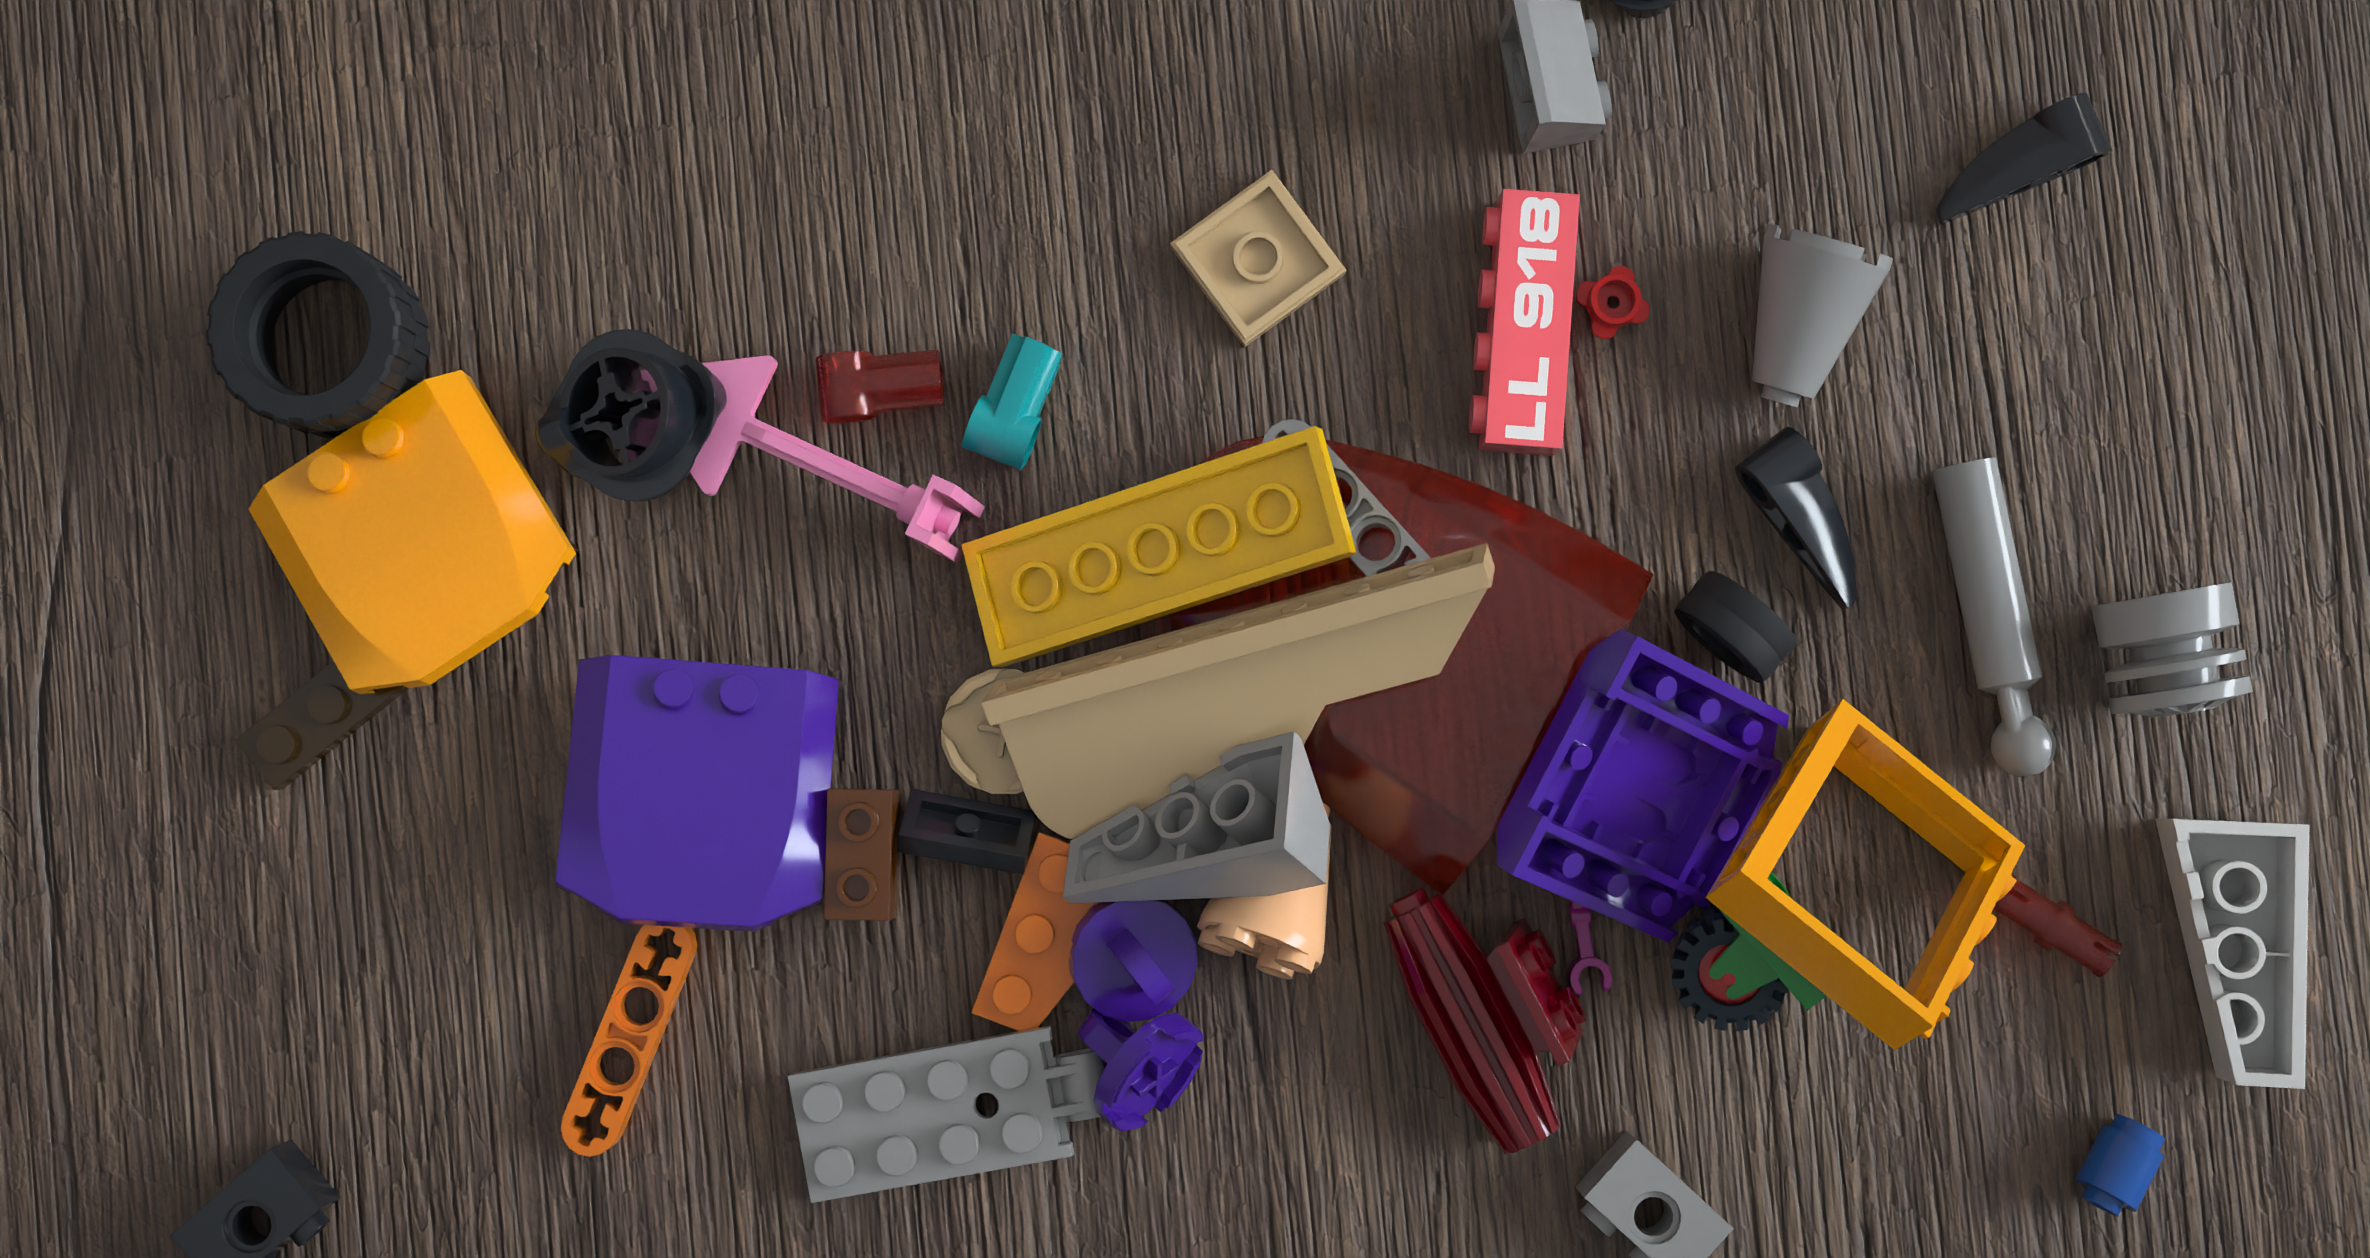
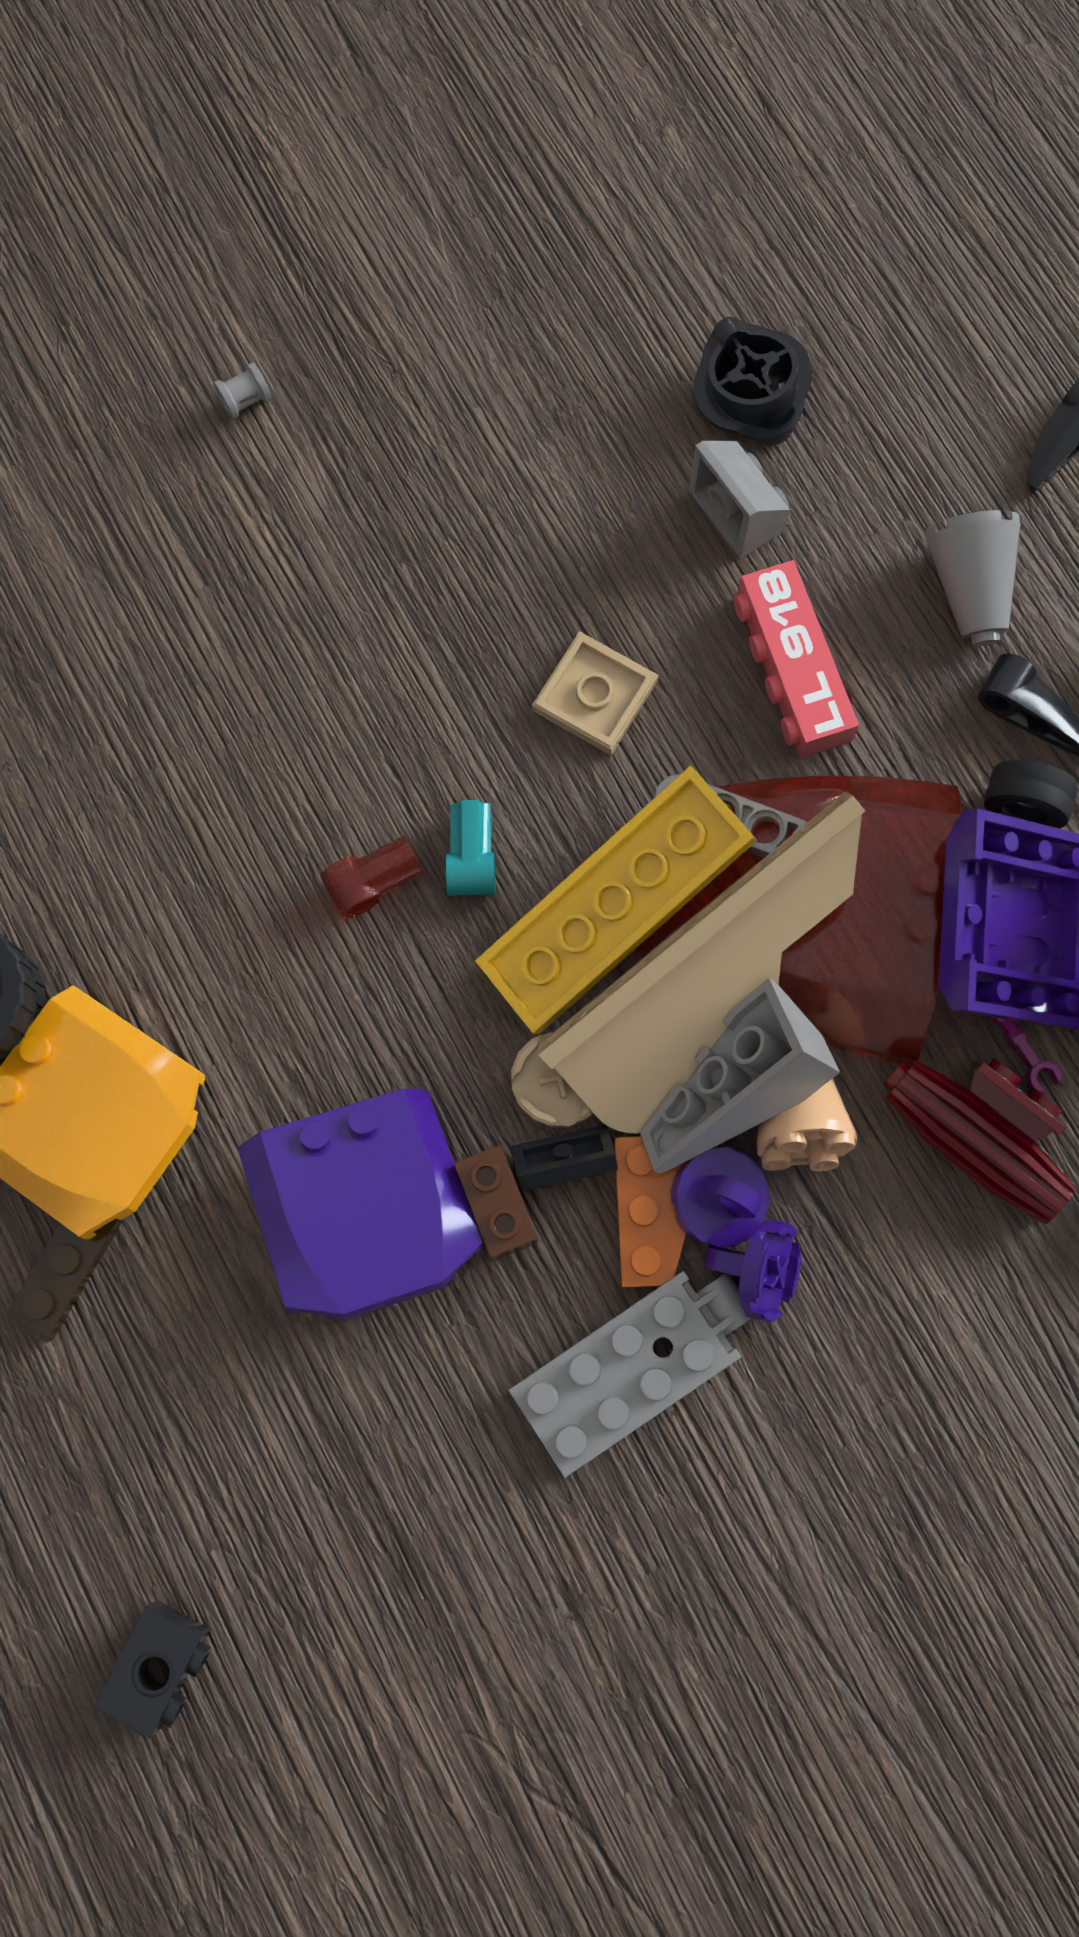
camera: 20 degrees left, 10 degrees down
(622, 1032) = (373, 1410): orange beam -> none
(652, 430) = (228, 964): black piece -> none
(929, 511) = (262, 942): bright pink piece -> none
(1621, 286) = (848, 613): red plate -> none

